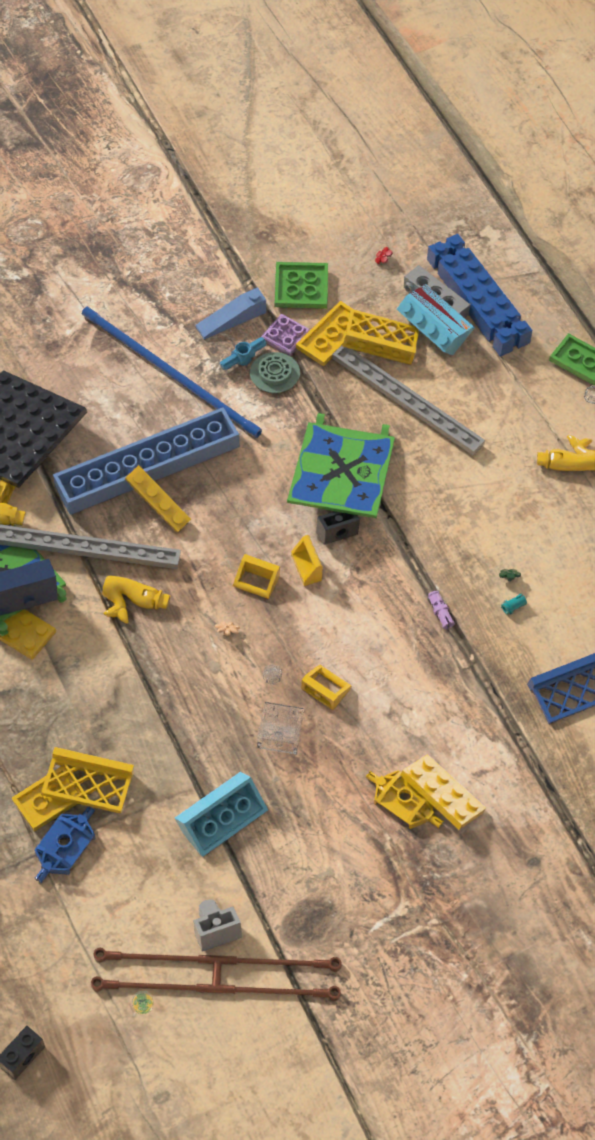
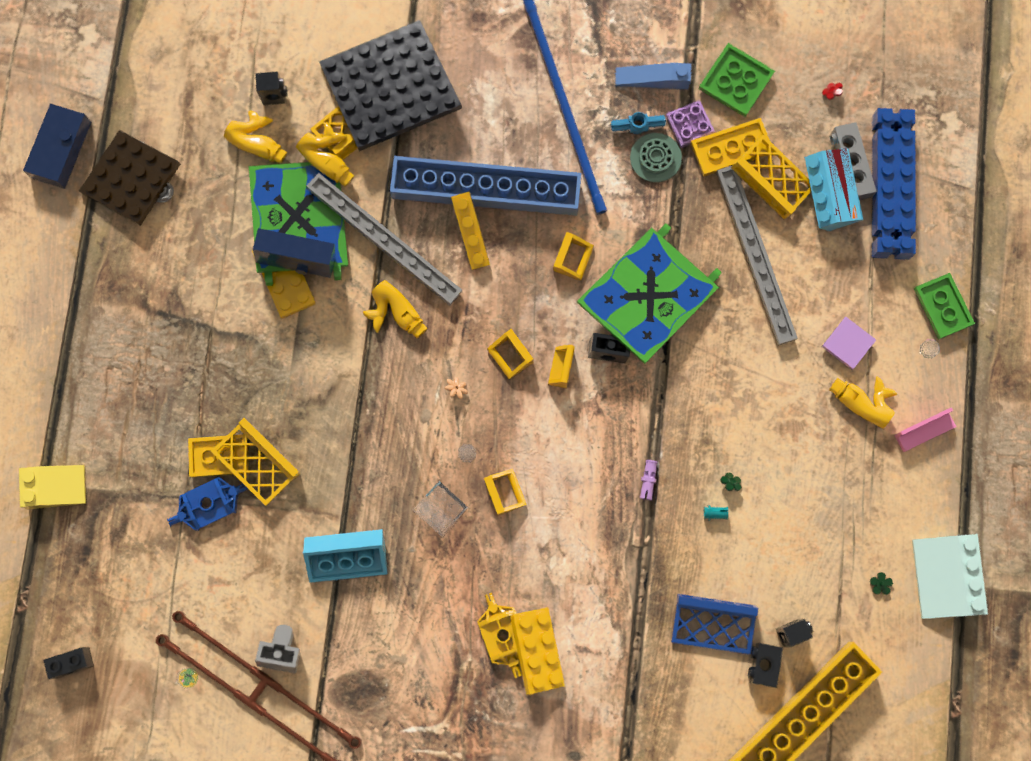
camera: 35 degrees right, 20 degrees up
(252, 490) = (568, 240): none -> yellow tile
(527, 423) = (848, 343): none -> lavender tile

